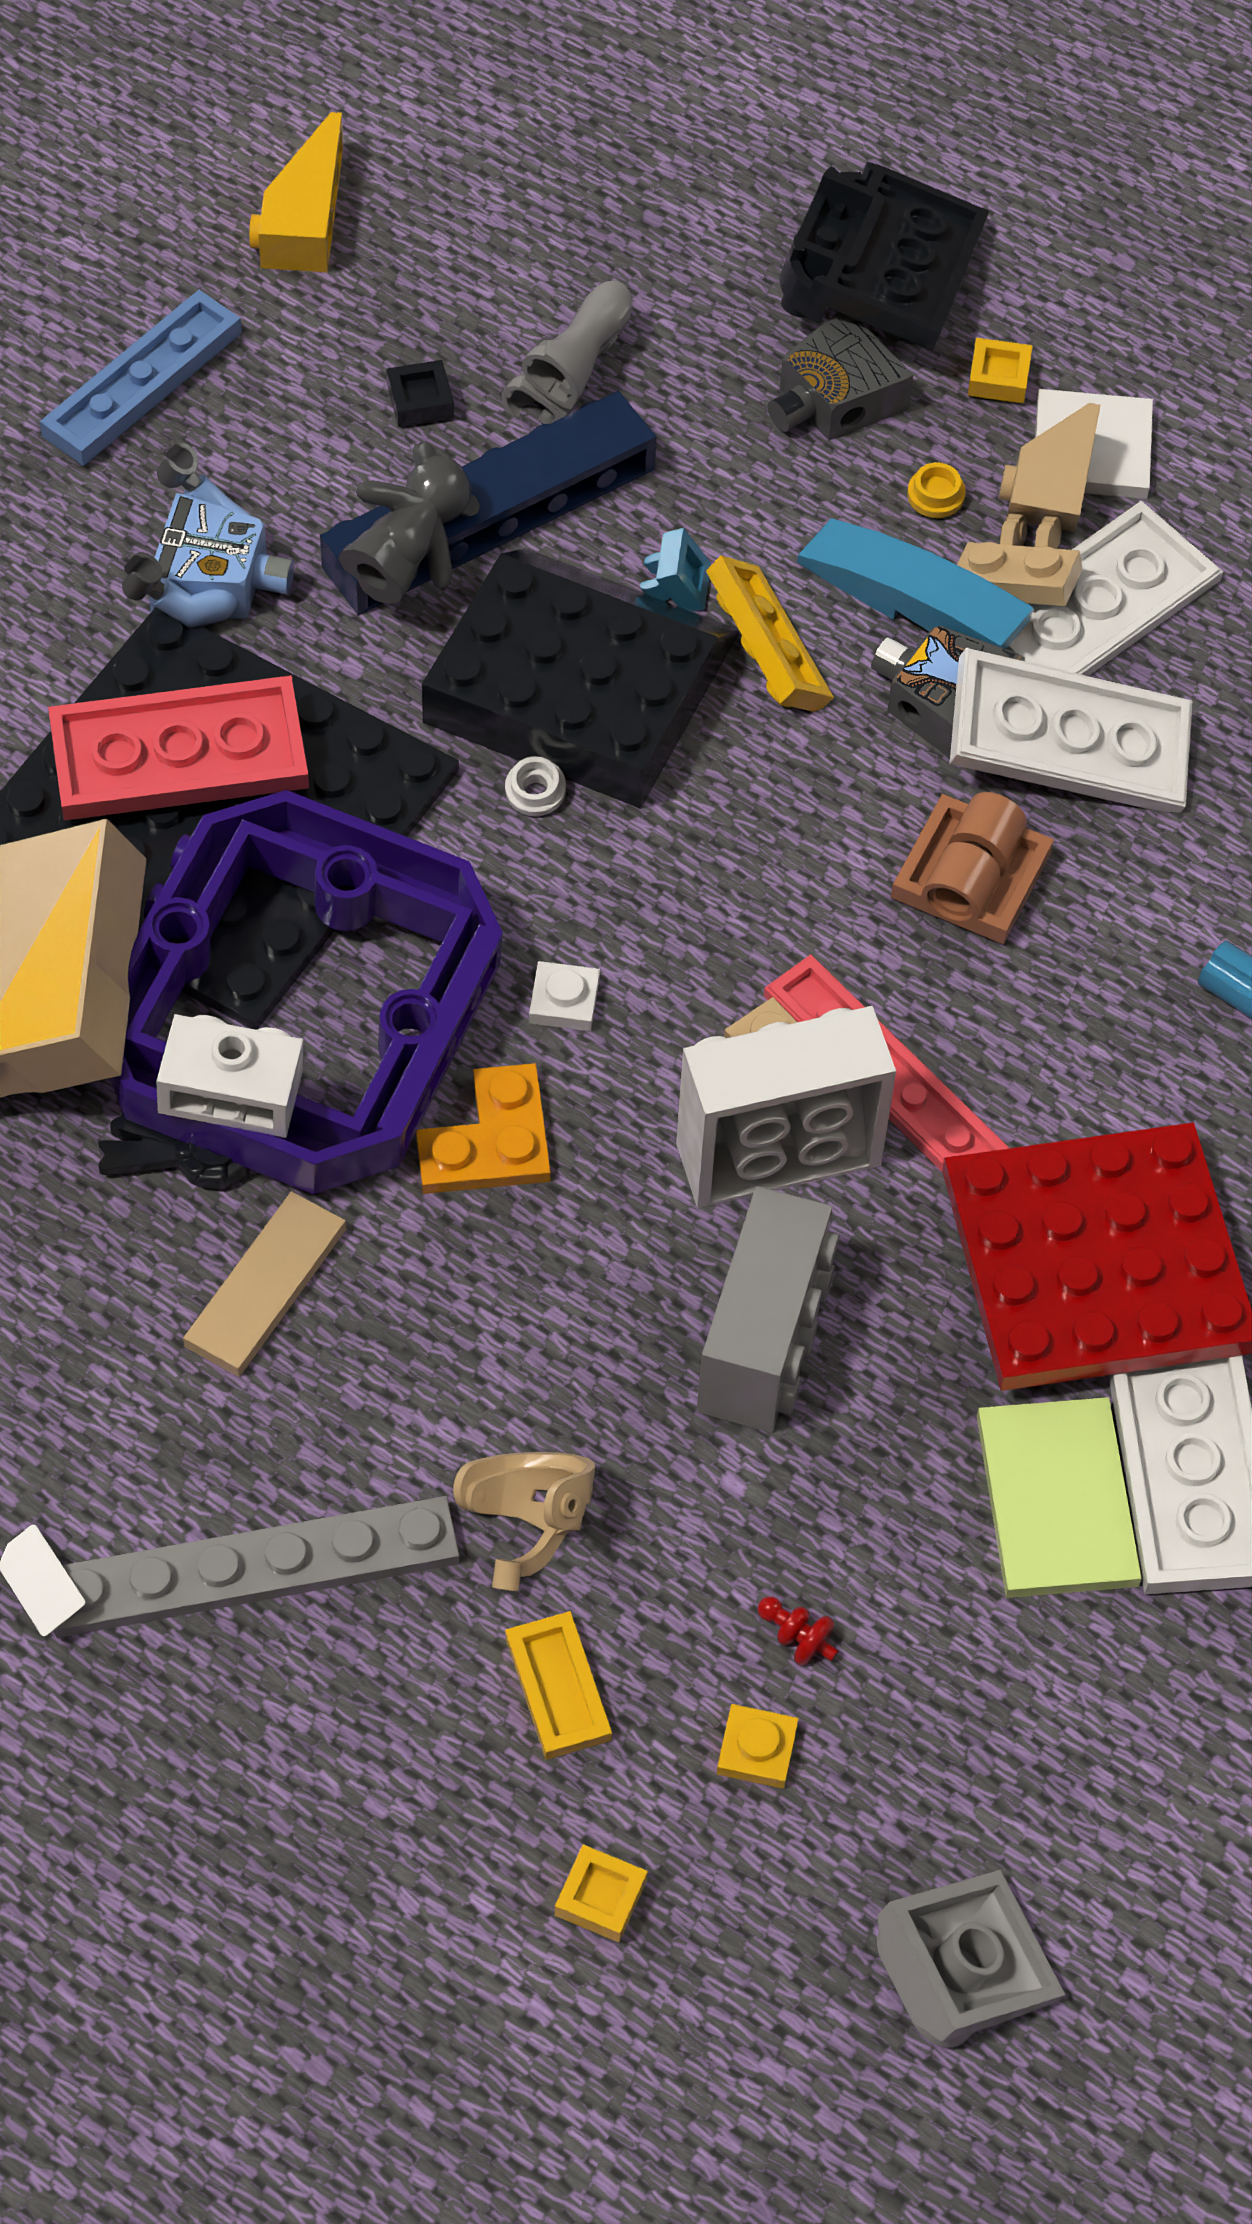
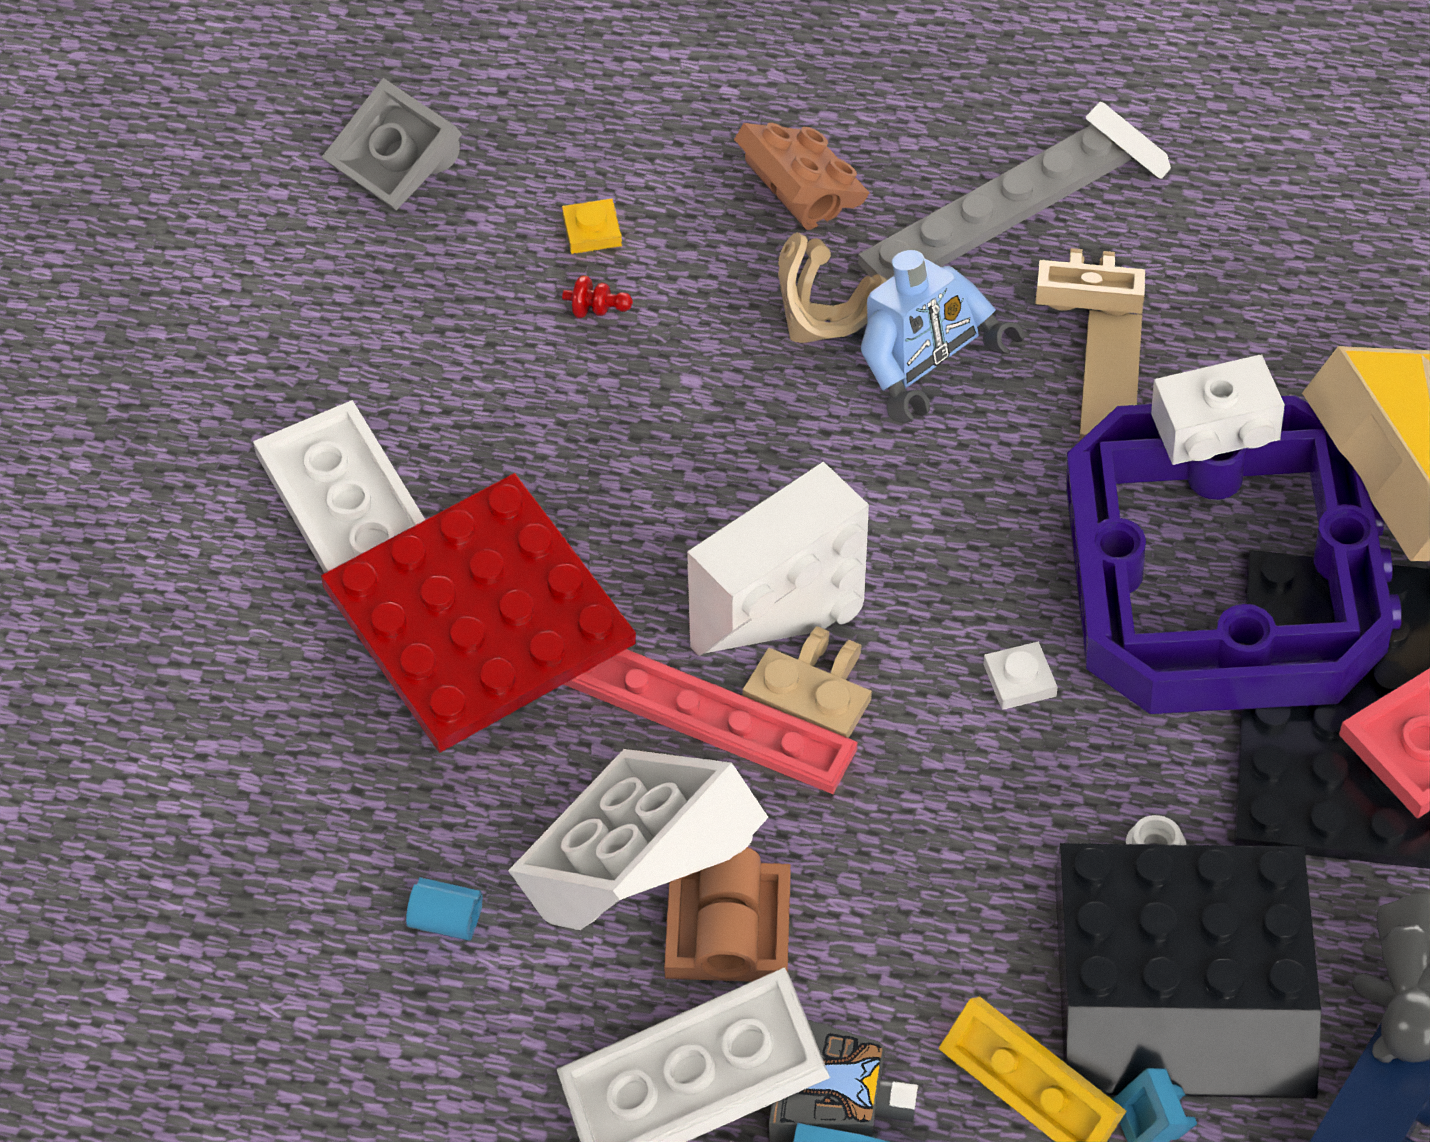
camera: 160 degrees right, 5 degrees down
(228, 1377) = (1090, 286): none -> tan hinge
(447, 1396) = (922, 321): none -> light blue torso
(469, 1691) = (801, 171): none -> nougat plate
(501, 1149) = (999, 543): light orange plate -> none
(558, 1685) = (746, 212): yellow tile -> none
(600, 1893) = (653, 107): yellow plate -> none
(768, 1310) = (717, 443): light grey brick -> none
(1046, 907) = (635, 830): none -> white slope
(1058, 1497) = (441, 443): yellowish green tile -> none

